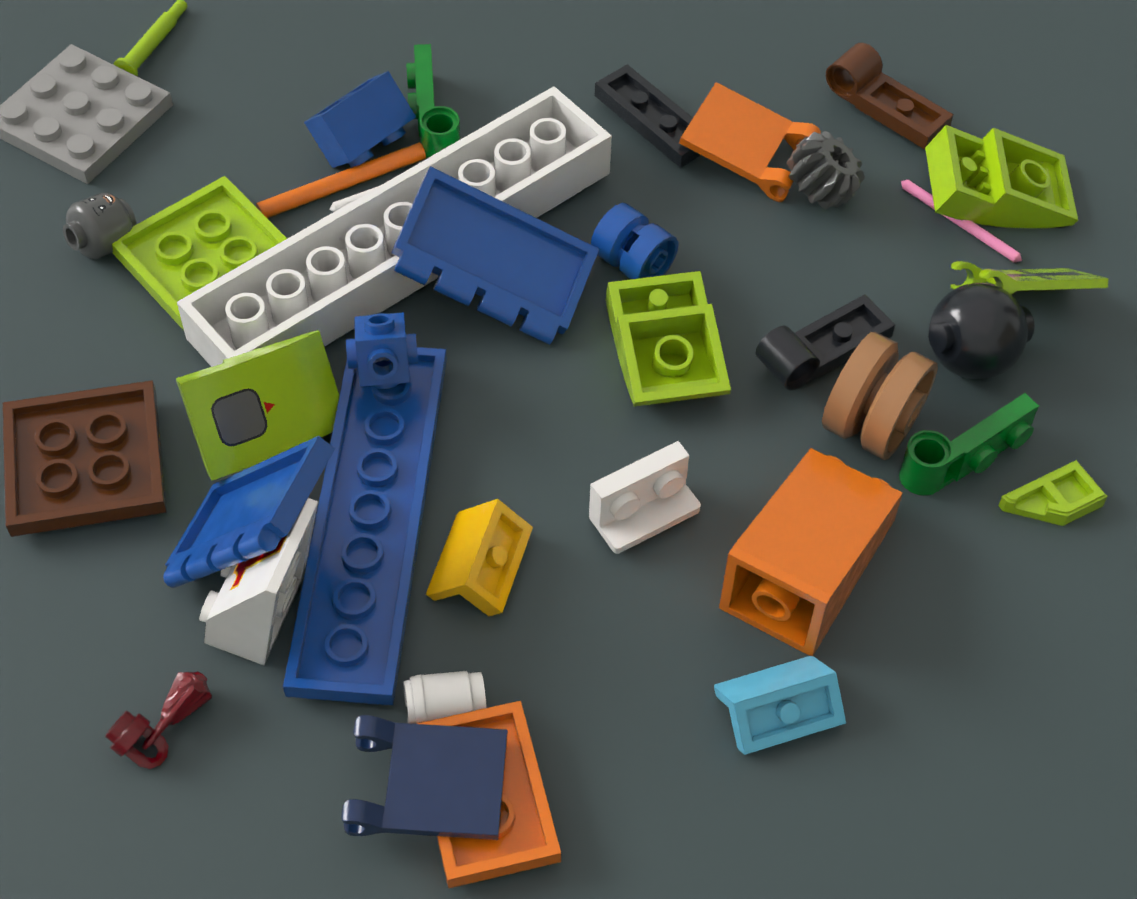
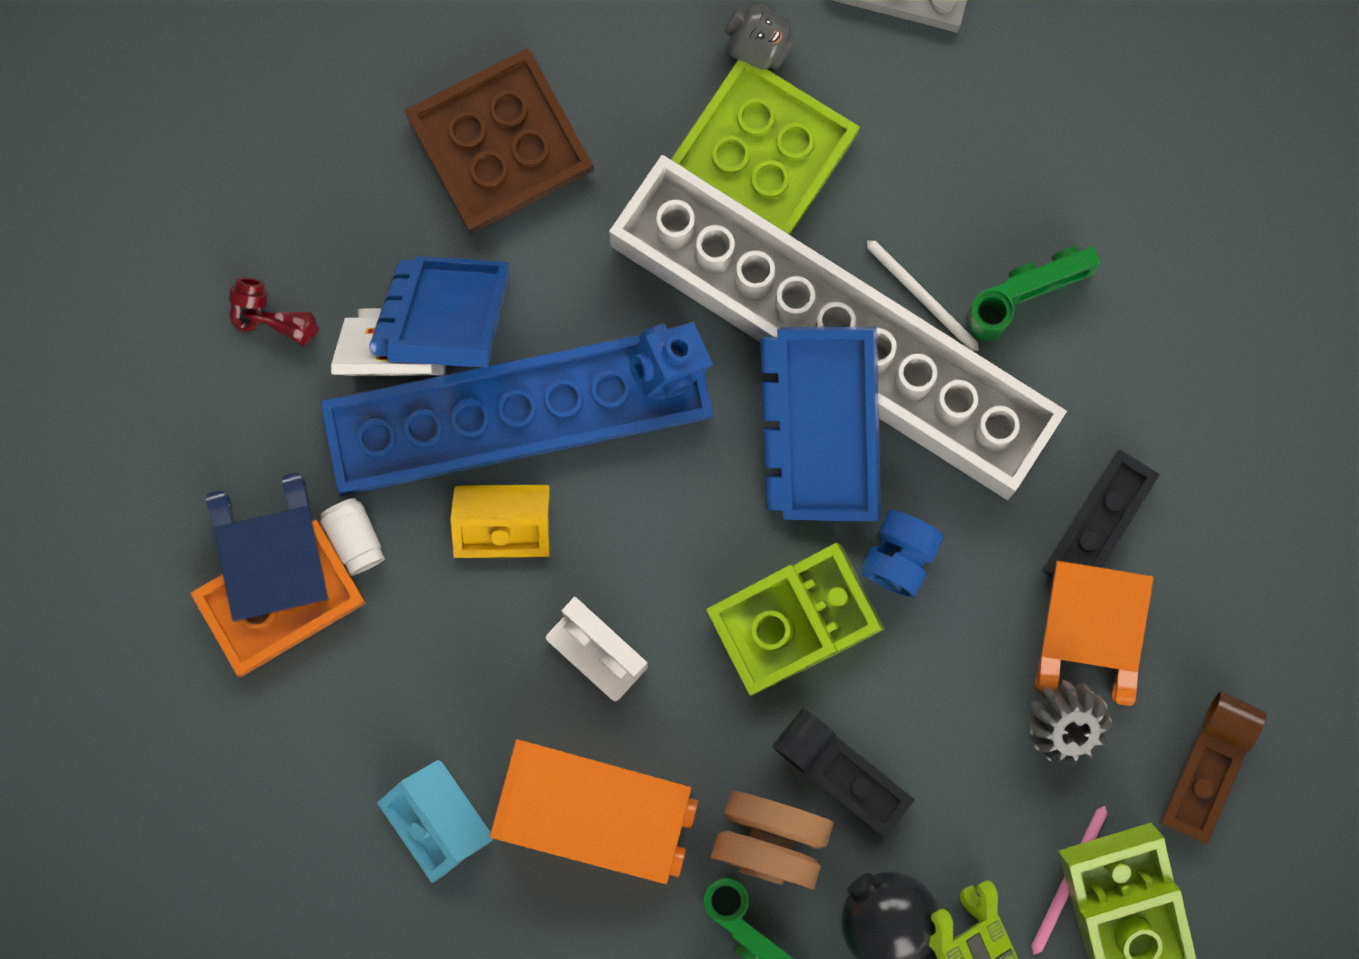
camera: 75 degrees right, 25 degrees up
(260, 403) = (581, 273): lime slope -> none
(341, 180) = (906, 238): orange bar -> none
(360, 121) = (974, 230): blue brick -> none

